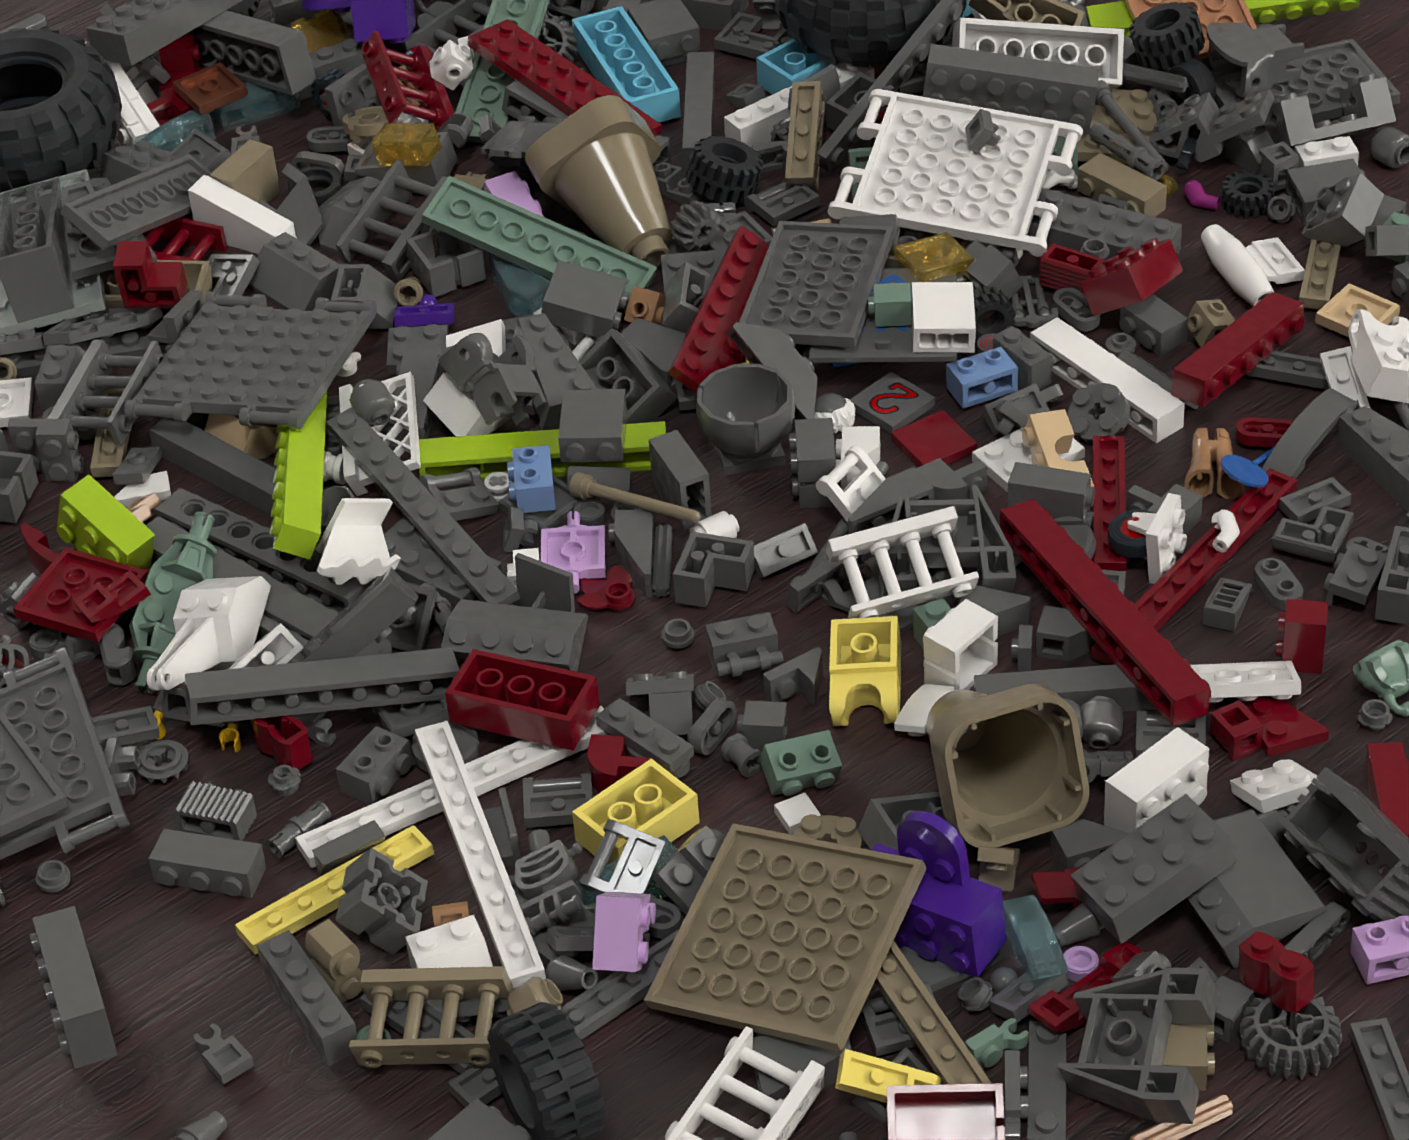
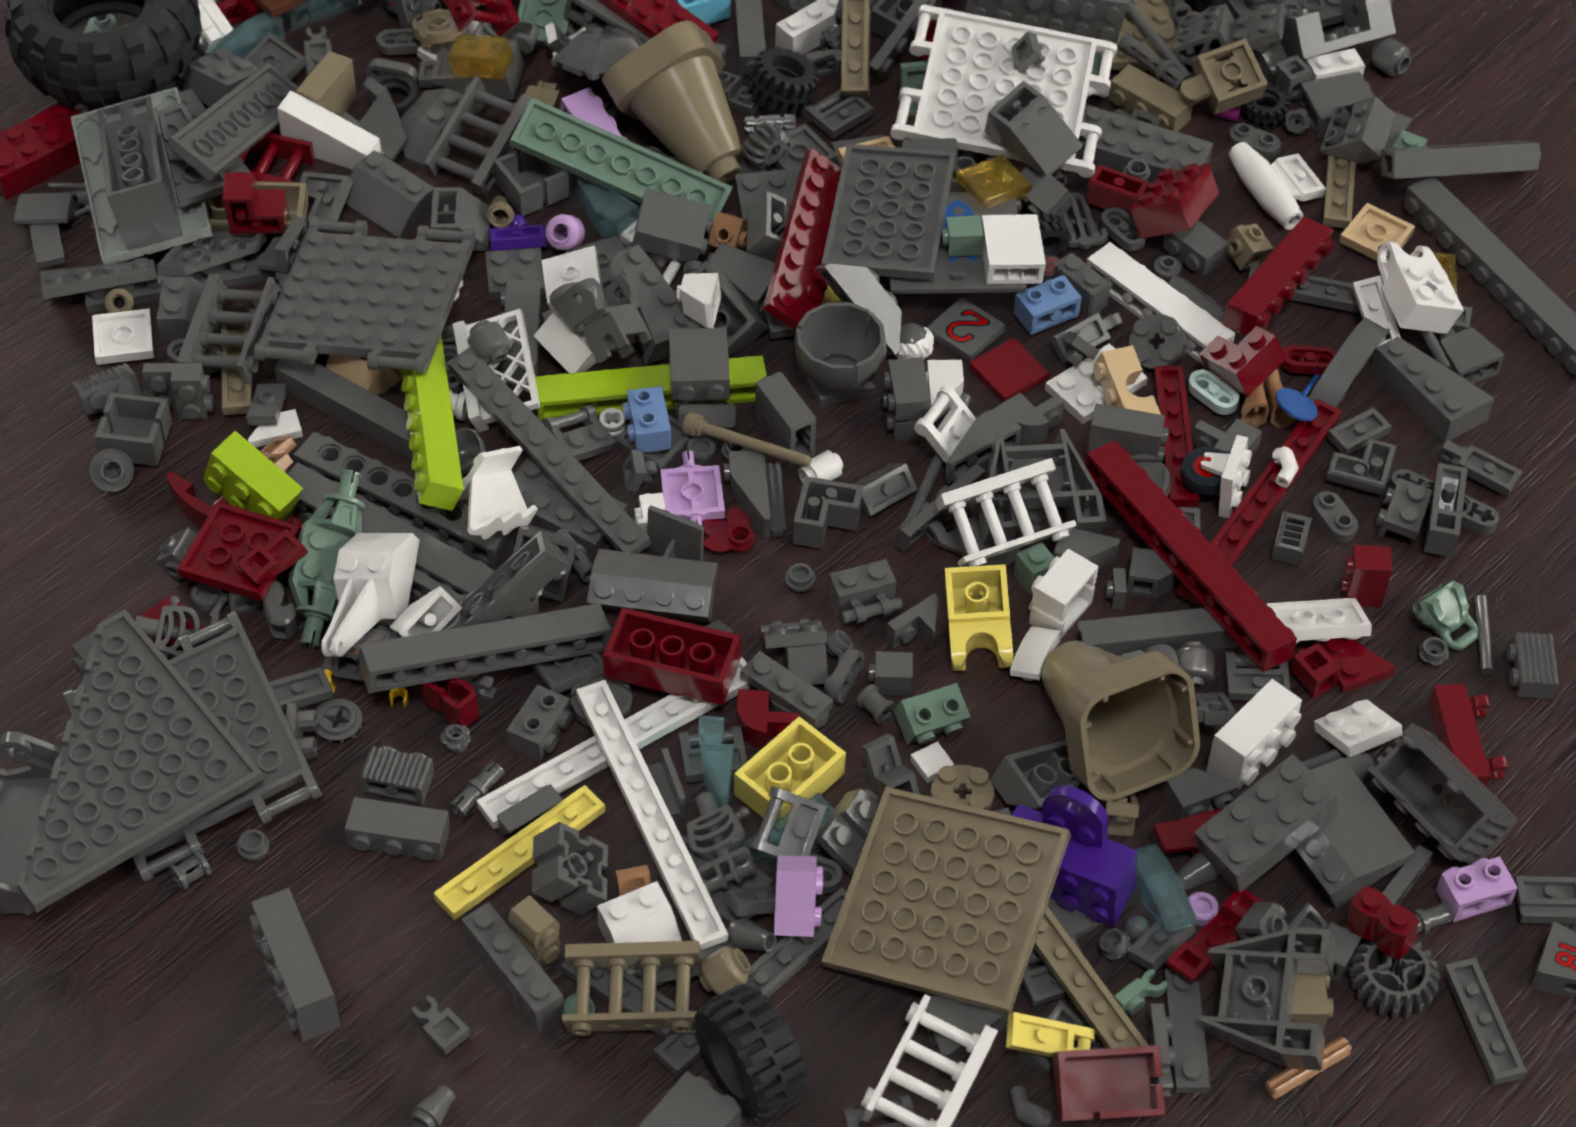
camera: 10 degrees left, 10 degrees up
(473, 308) = (556, 232): none -> lavender head
(556, 796) = (715, 758): none -> clear light blue slope
(601, 360) = (700, 297): none -> white slope
(741, 806) = (885, 767): none -> dark grey brick
(977, 203) = (1032, 129): none -> dark grey slope
(1156, 462) = (1215, 392): none -> light aqua plate
(1189, 430) = (1244, 364): none -> dark red brick
(1191, 153) = (1215, 74): none -> dark tan brick
(1241, 228) = (1261, 141): none -> dark grey plate
(1330, 980) = (1433, 917): none -> dark grey pin

